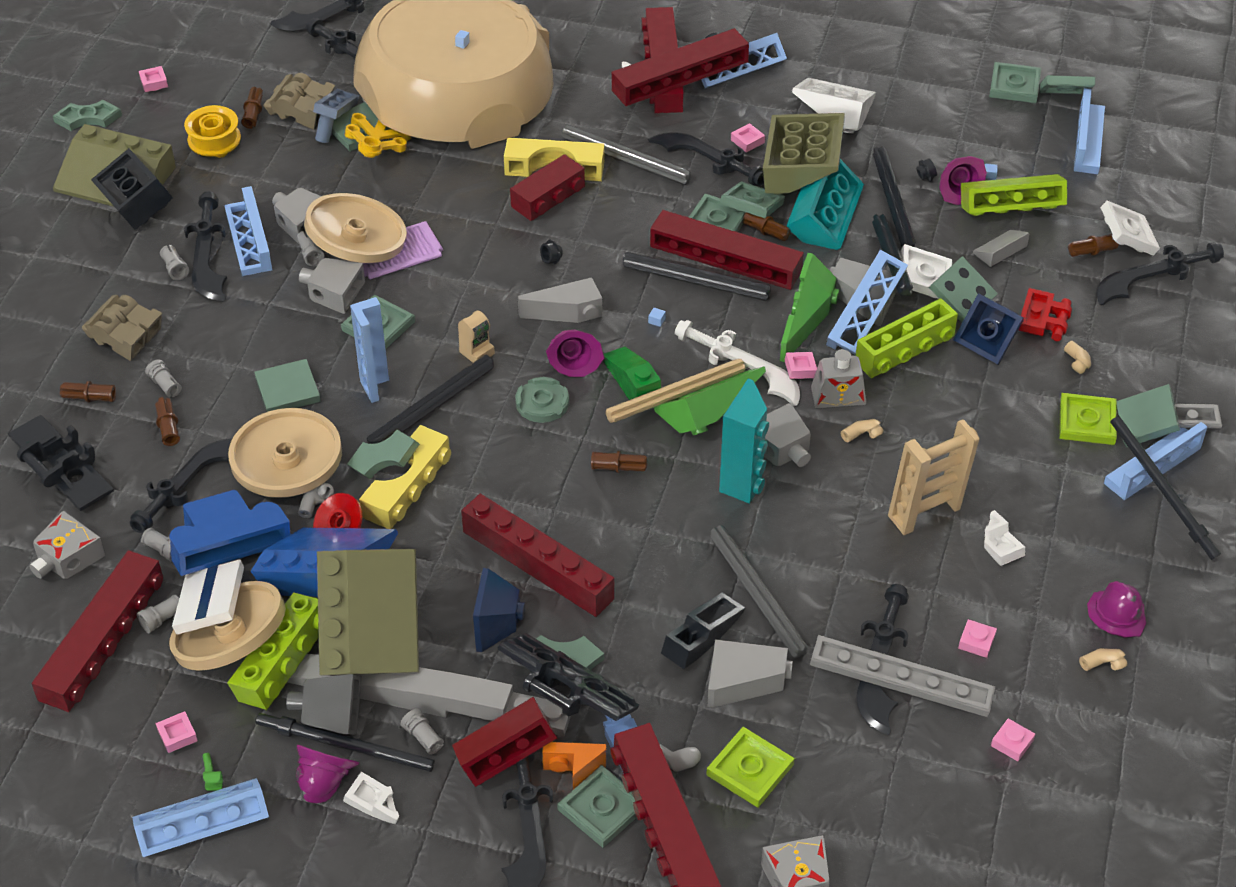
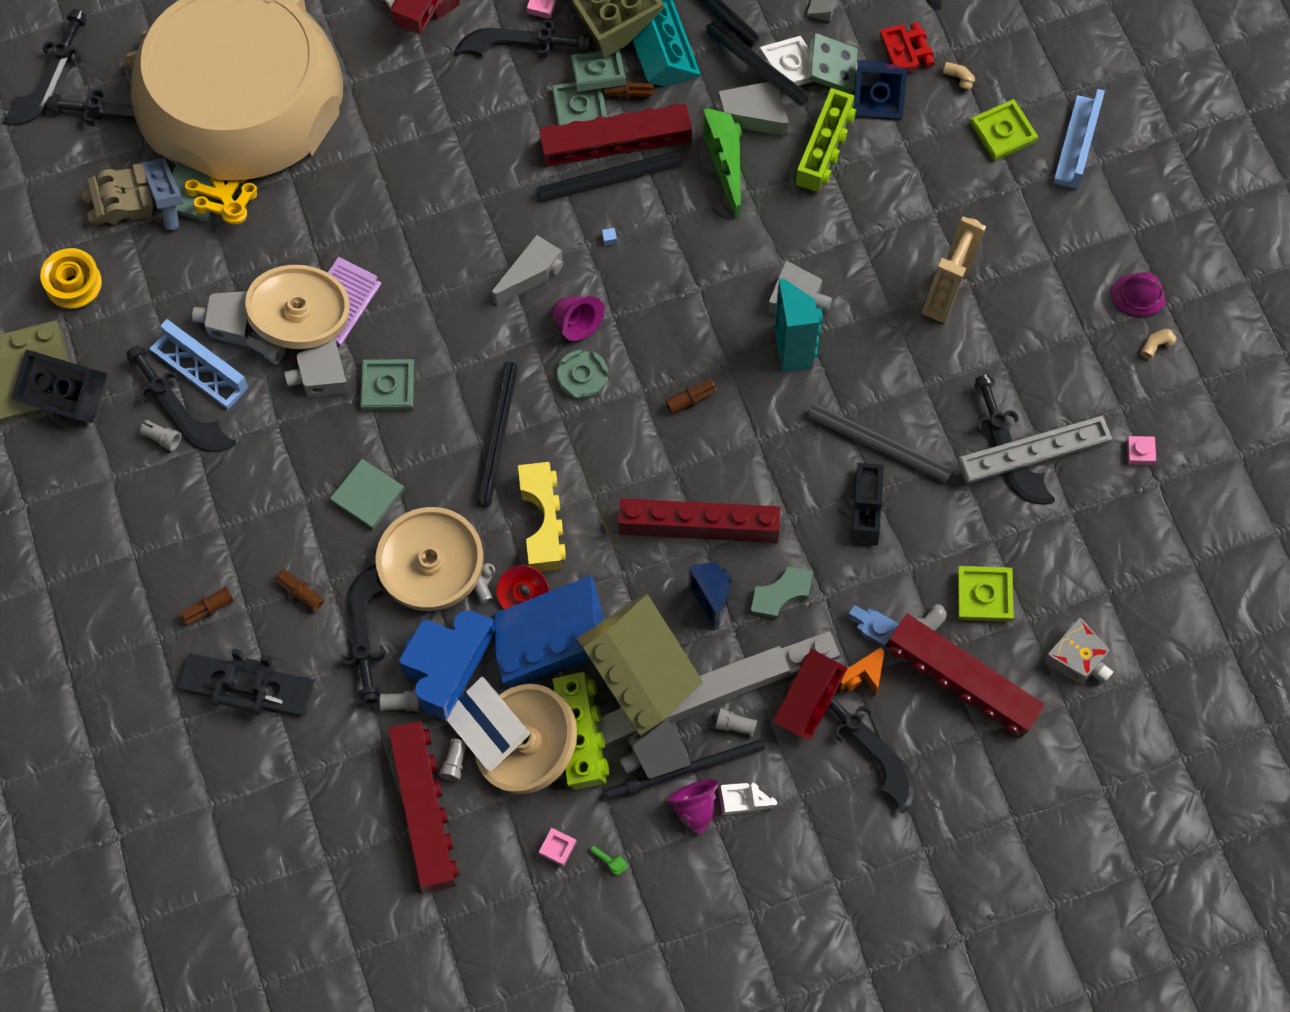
camera: 35 degrees left, 20 degrees up
(65, 548) = (328, 757): light grey torso -> none
(123, 325) = (167, 529): dark tan hips -> none
(160, 375) = (260, 553): light grey pin -> none
(200, 817) = (637, 899): light blue fence -> none
(252, 108) = (79, 229): reddish brown axle -> none
(370, 345) = (430, 426): light blue fence -> none
(390, 452) = (500, 518): sand green tile -> none
(462, 39) = (247, 60): light blue piece -> none
(475, 336) = (487, 354): tan leg -> none
(527, 155) = (422, 111): light yellow arch -> none
(547, 187) = (418, 160): dark red brick -> none
(551, 252) = (473, 225): black plate -> none
(553, 667) = (765, 612): black piece -> none
(599, 806) = (905, 694): sand green tile -> none
(629, 155) = (451, 82): dark grey axle -> none
(632, 372) = (638, 307): green slope -> none
(675, 390) = (685, 302): tan axle -> none
(705, 405) = (717, 298): bright green wedge -> none
(722, 349) = (752, 238): white sword -> none
(746, 672) = (924, 519): light grey slope -> none
(800, 365) = (760, 215): bright pink plate -> none
(838, 381) = (808, 213): light grey torso -> none
(858, 298) = (768, 128): light blue fence -> none
(860, 427) = (847, 244): tan arm -> none
(977, 638) = (1060, 381): bright pink plate -> none
(1000, 542) = (1019, 286): white slope -> none
(1150, 413) = (1050, 103): sand green tile -> none
(1192, 414) = (1079, 83): light grey slope -> none
(1197, 532) = (1151, 188): black bar -> none

